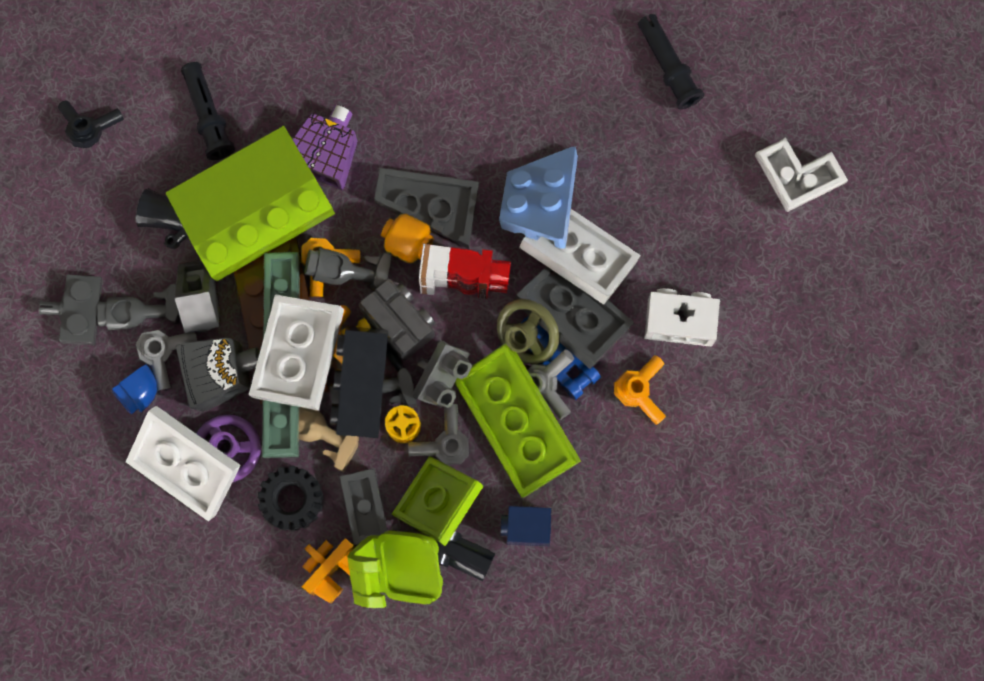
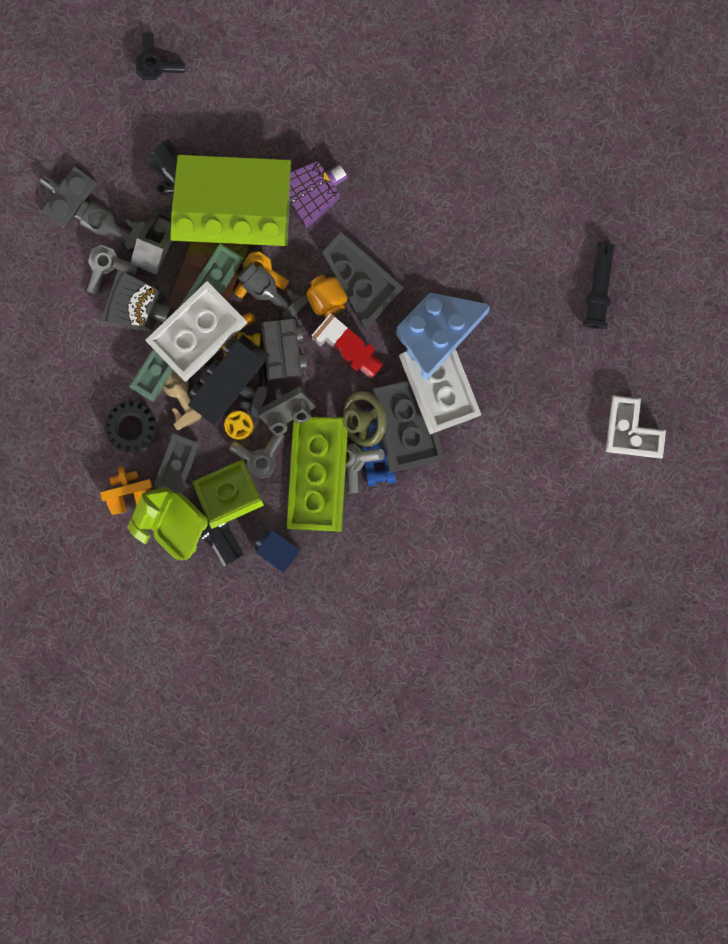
camera: 30 degrees right, 10 degrees up
(137, 390) = (73, 282): blue piece -> none
(182, 463) = (72, 355): white plate -> none
(210, 124) = (242, 119): black pin -> none
(219, 437) = (108, 341): medium lavender piece -> none
(633, 389) = (412, 505): light orange piece -> none
(665, 324) = (485, 493): white brick -> none

